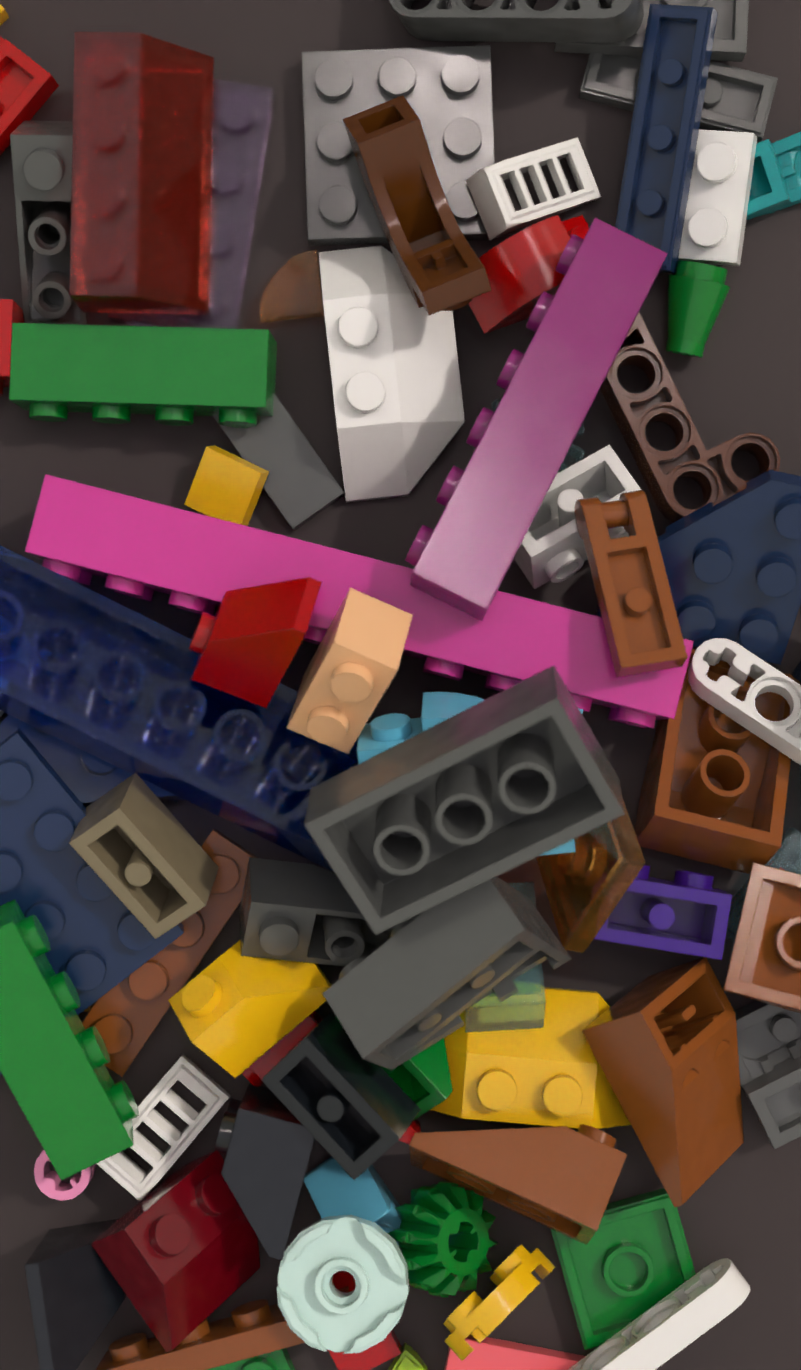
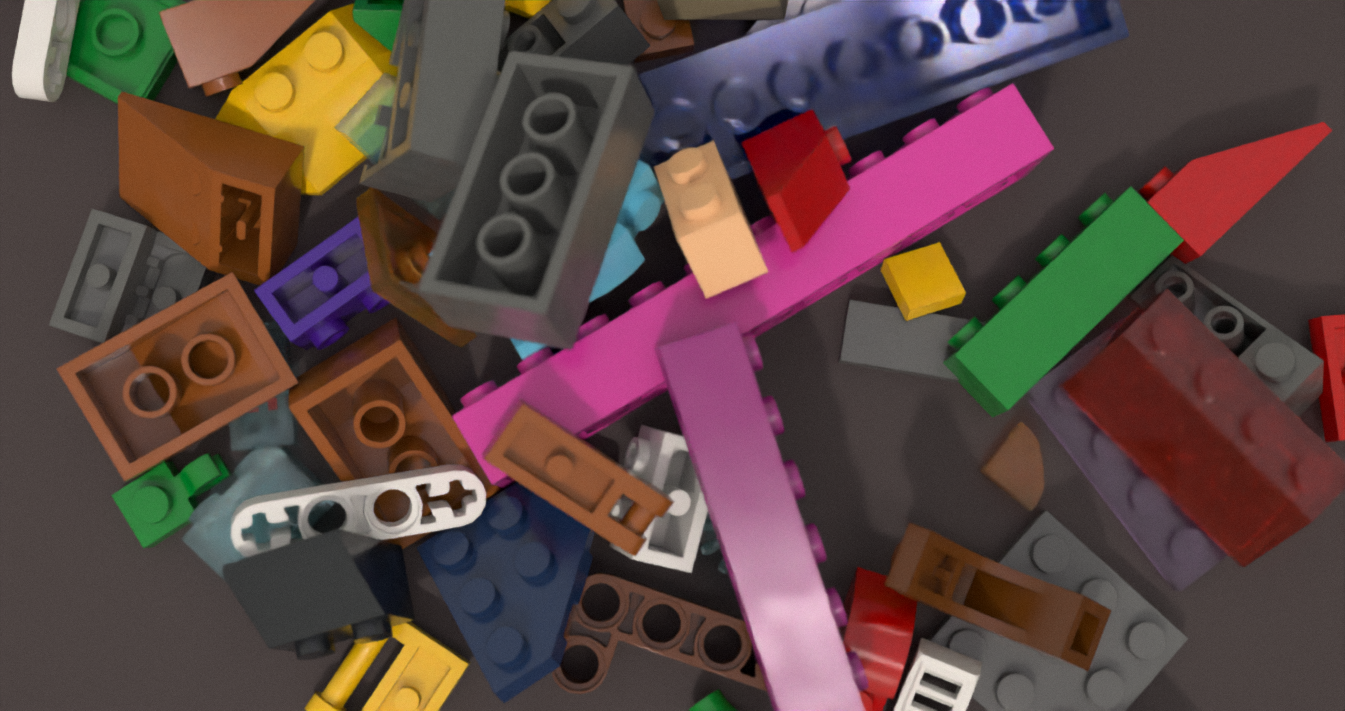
camera: 130 degrees right, 5 degrees down
(389, 374) = (891, 467): white wedge -> none

